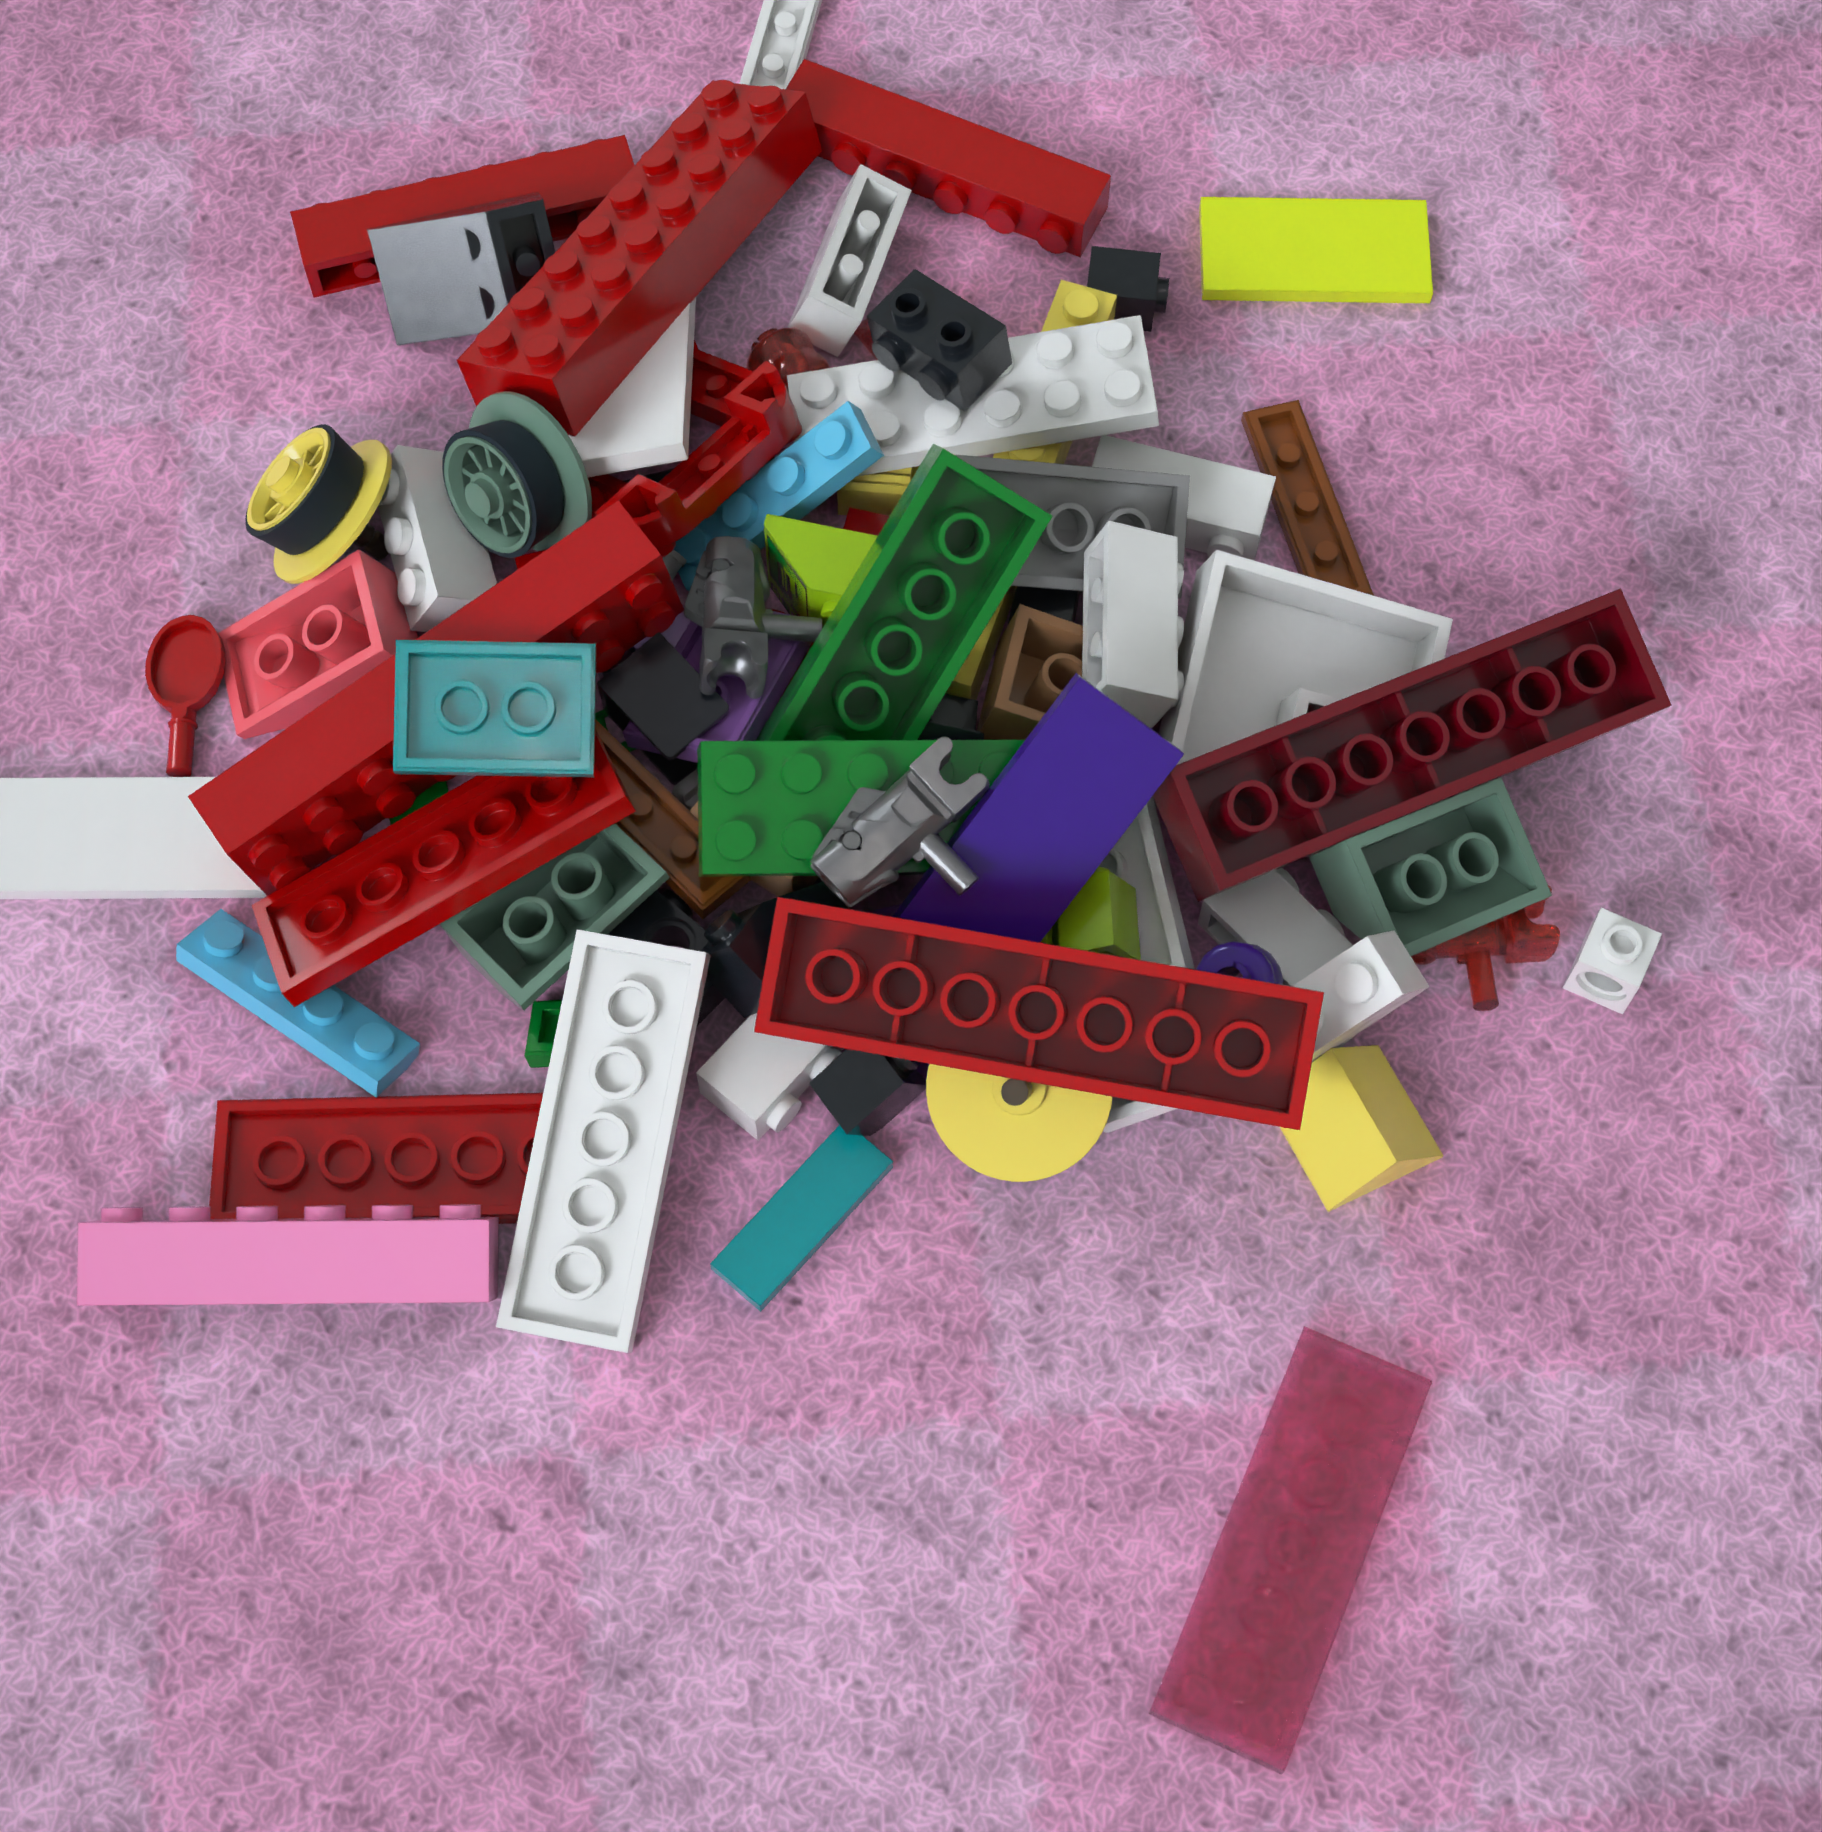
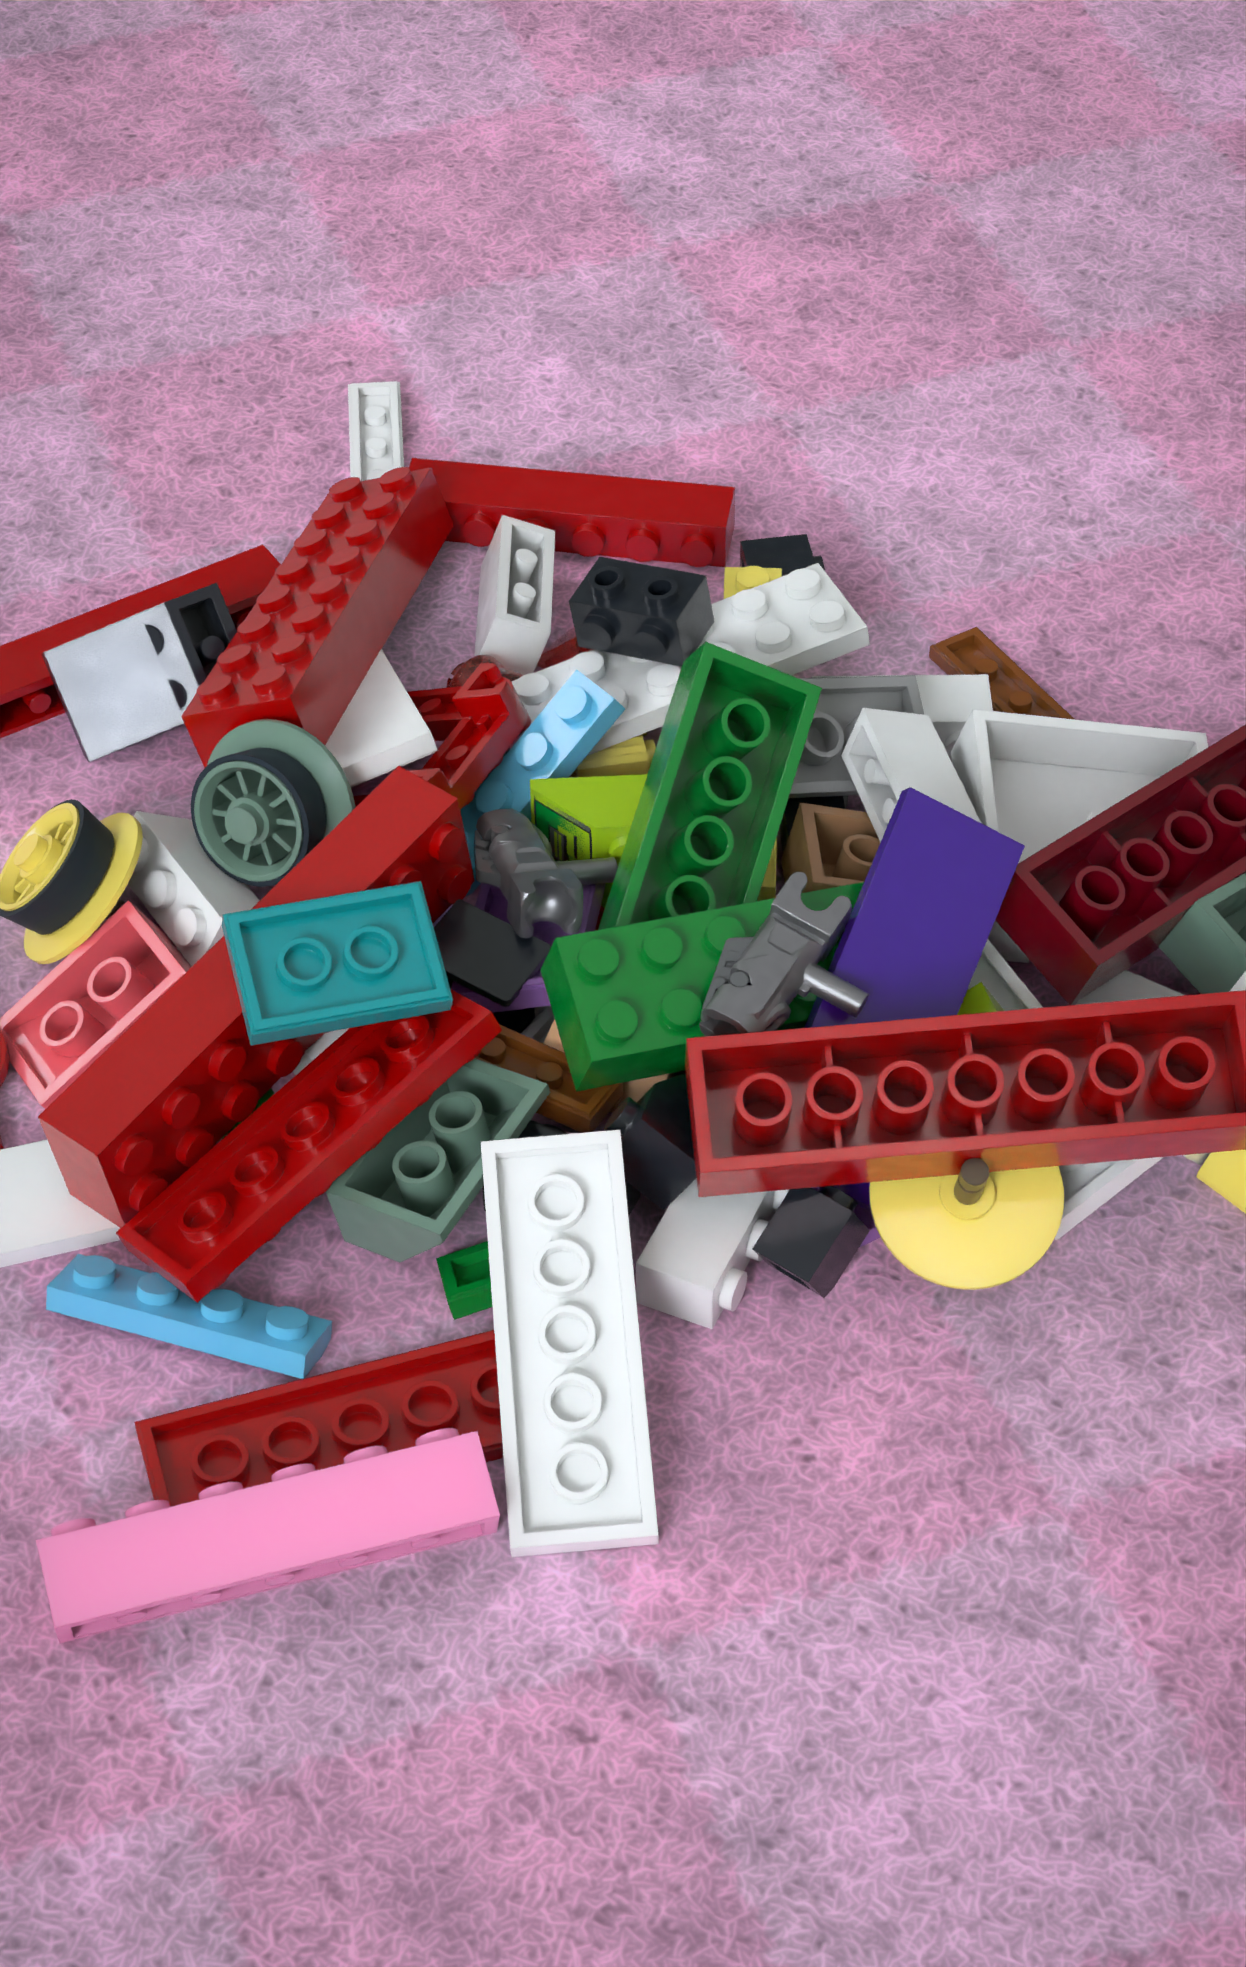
camera: 15 degrees left, 20 degrees down
(801, 1216) = (784, 1380): teal tile -> none
(1315, 250) = (939, 518): neon yellow tile -> none

